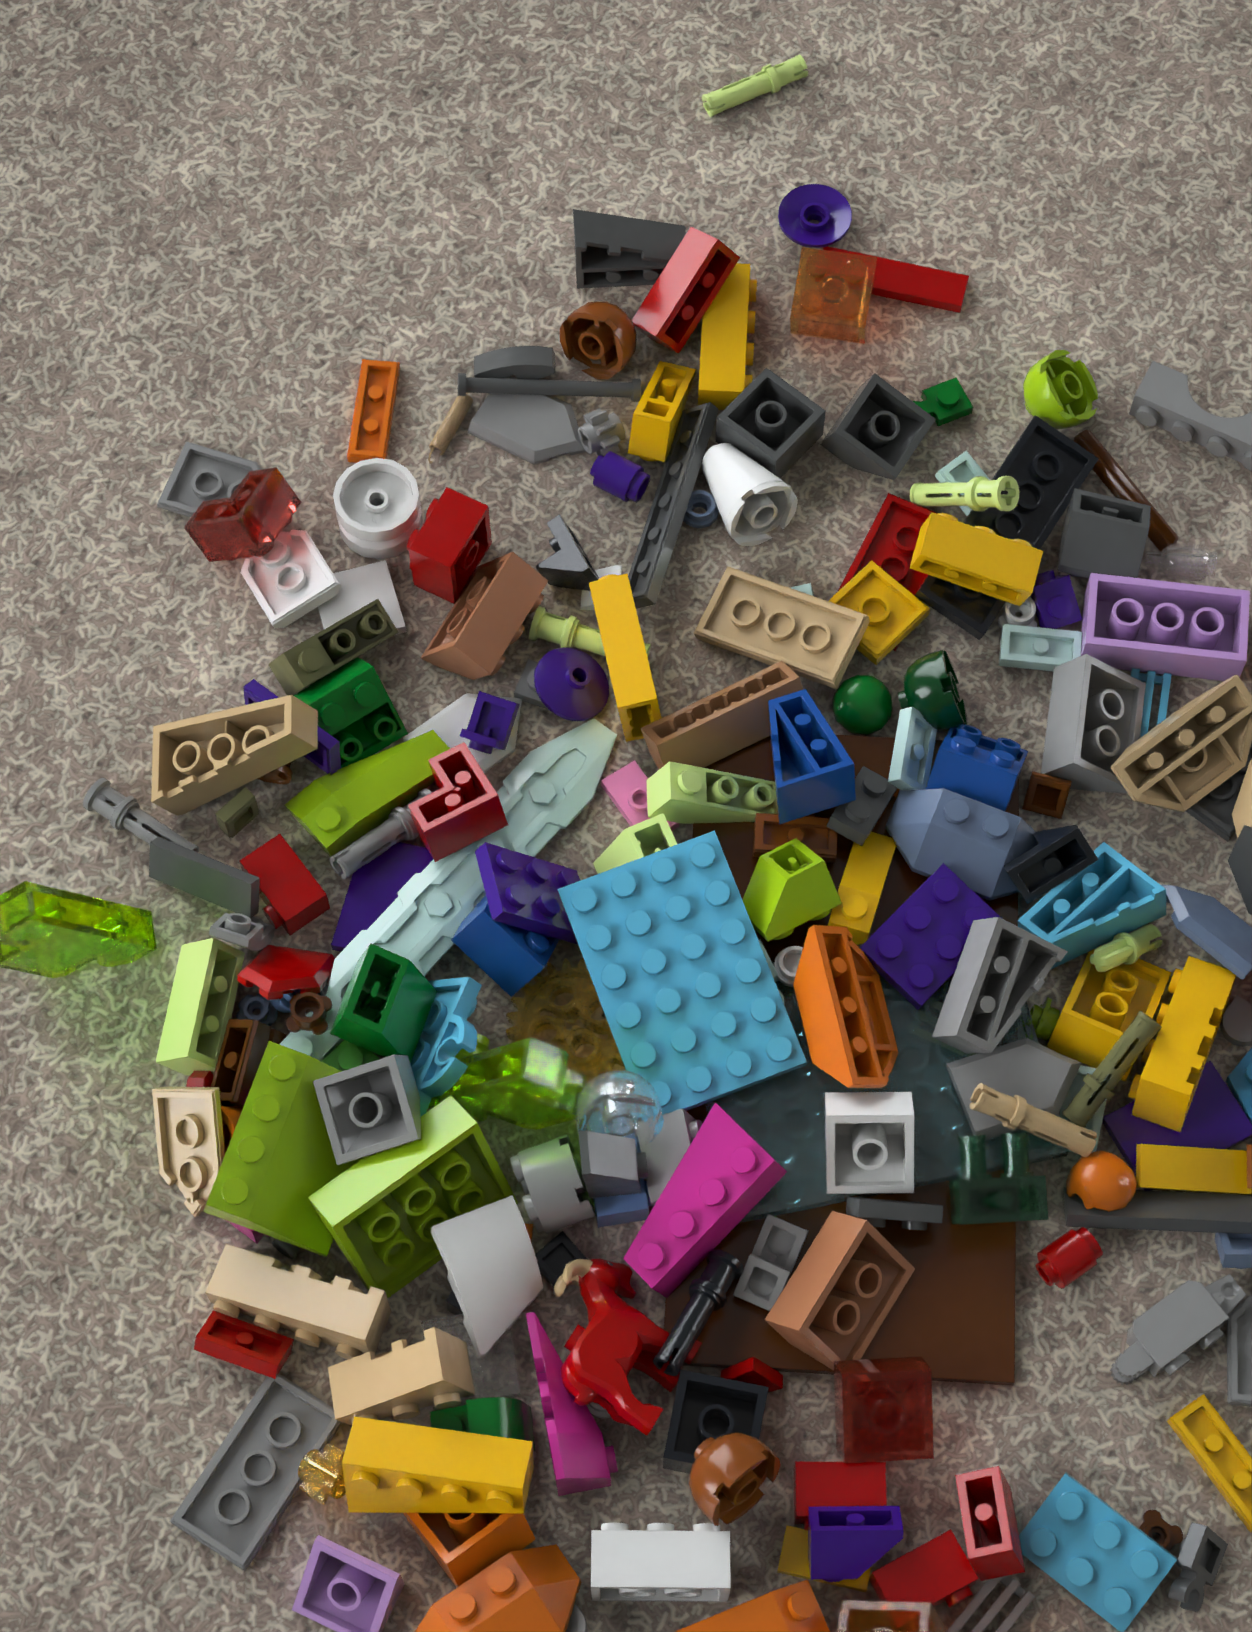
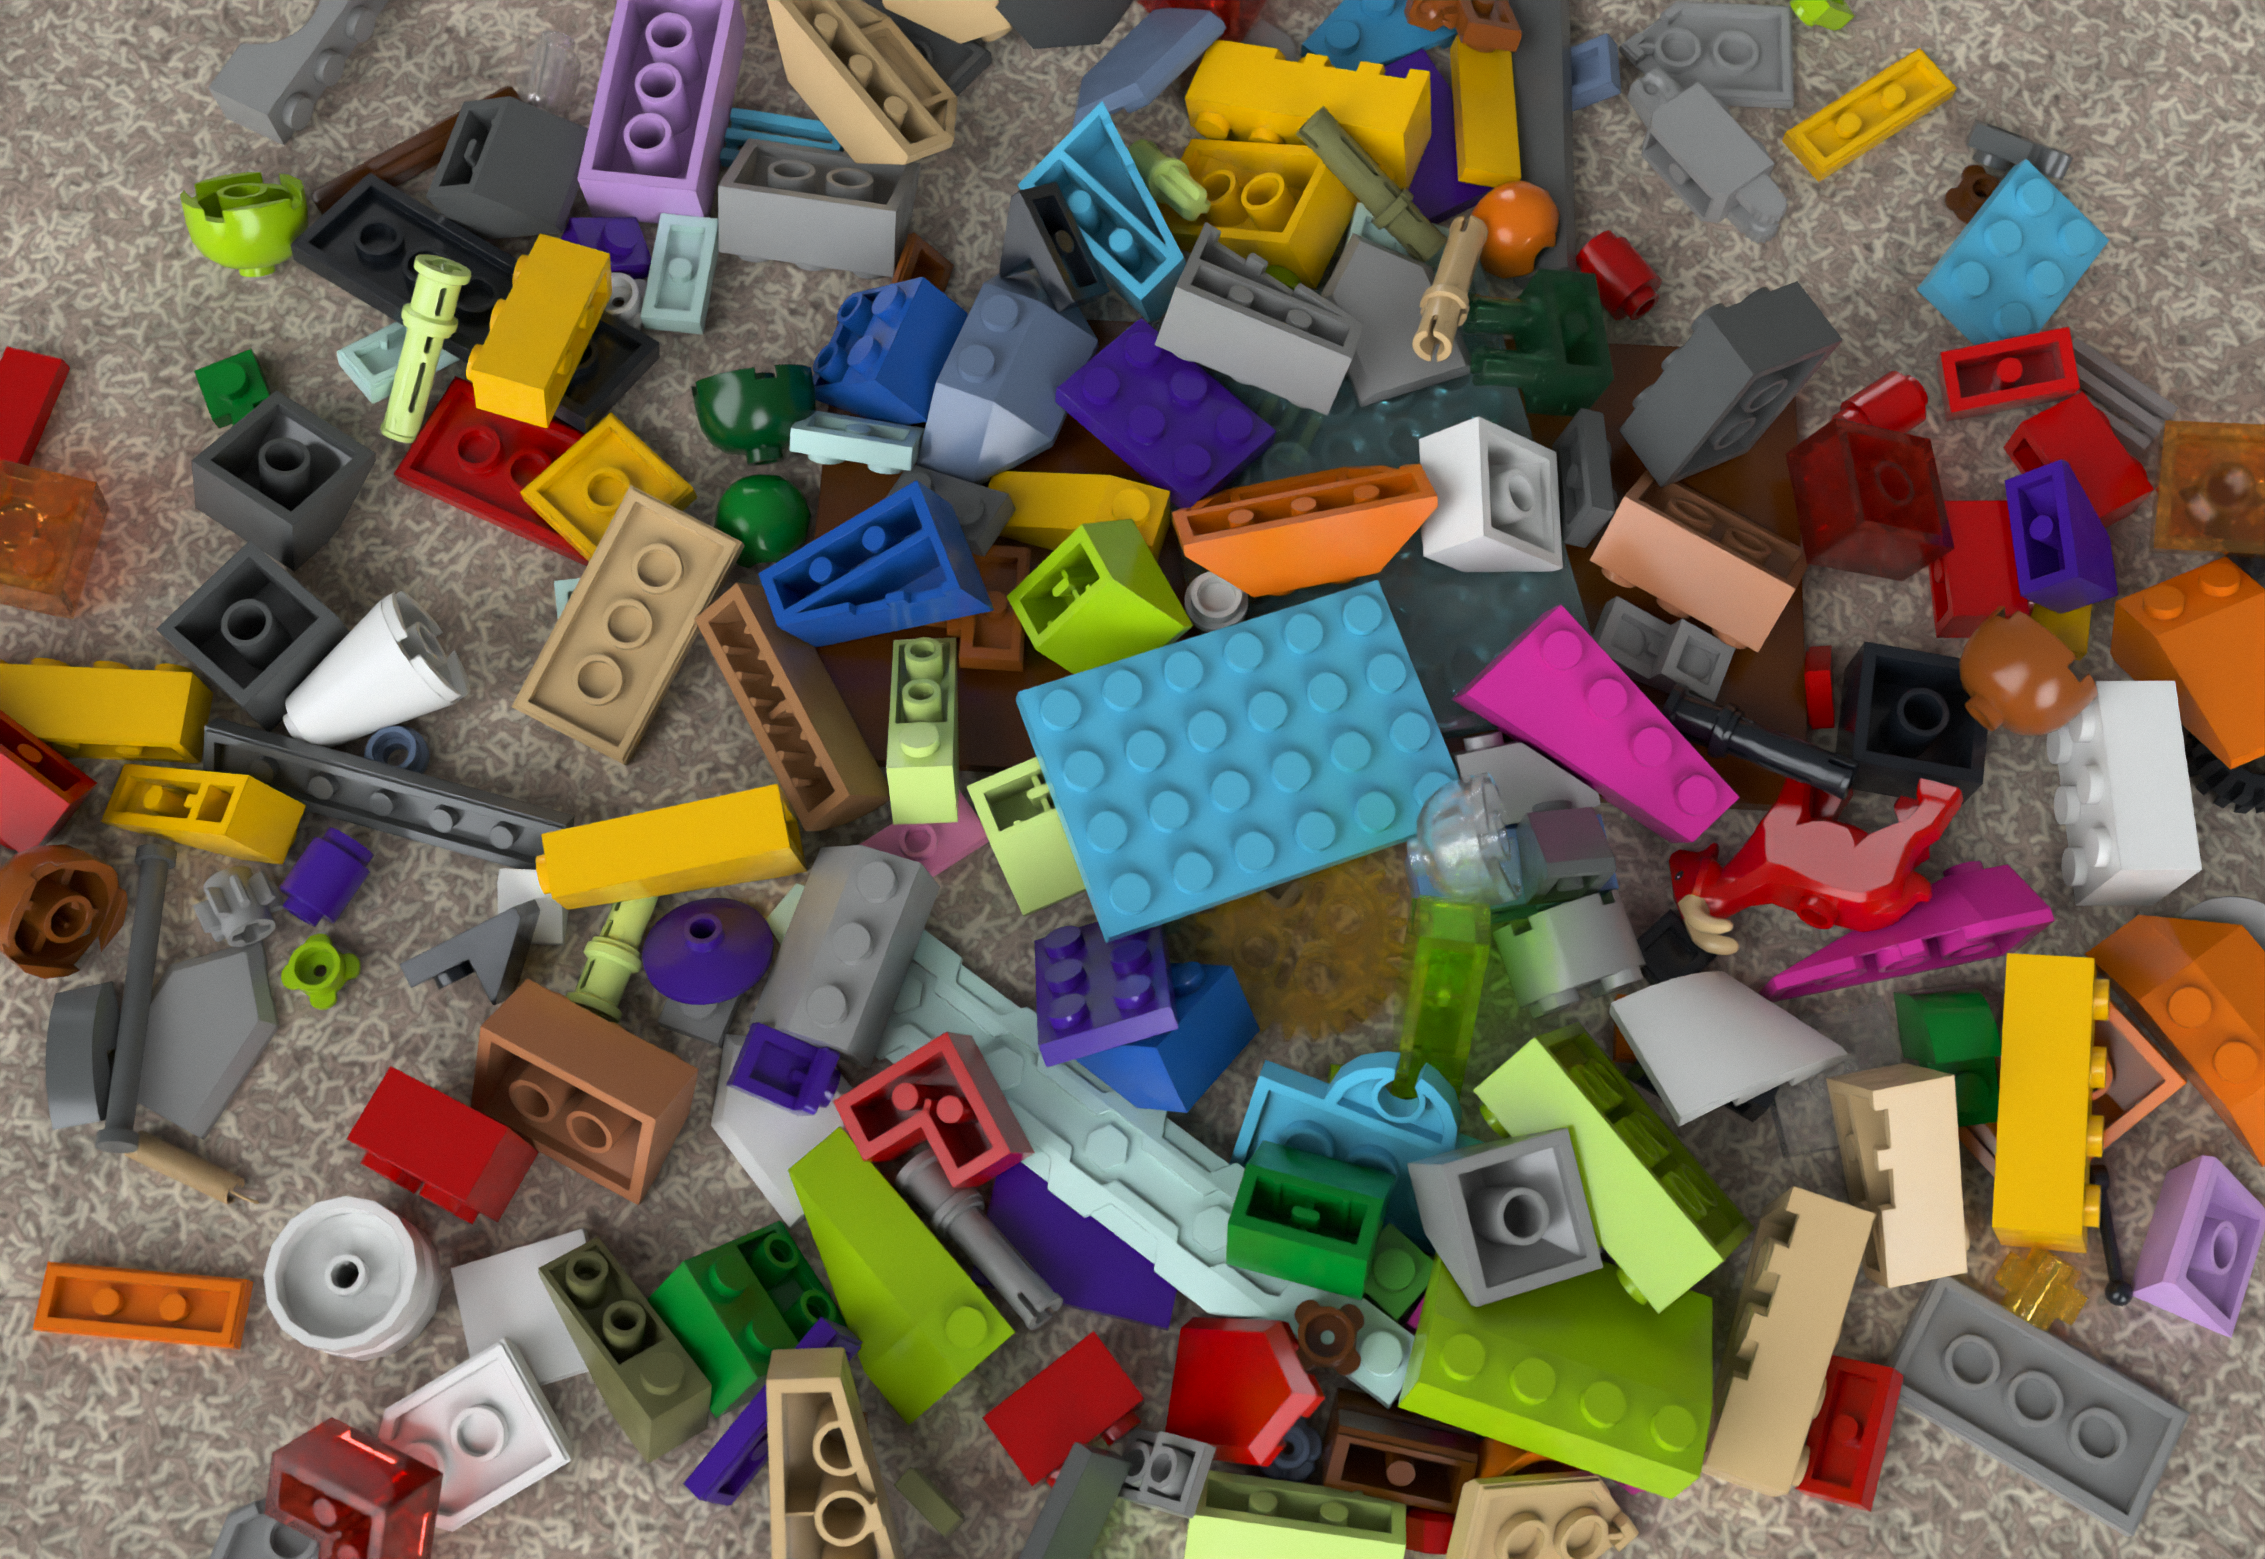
camera: 90 degrees left, 5 degrees up
(394, 1532) = (2117, 1290): none -> black hinge
(562, 758) = (848, 950): none -> light grey slope
(568, 471) = (302, 968): none -> lime plate
(953, 1292) = (1728, 382): none -> dark grey brick
(964, 1439) = (1888, 403): none -> red brick

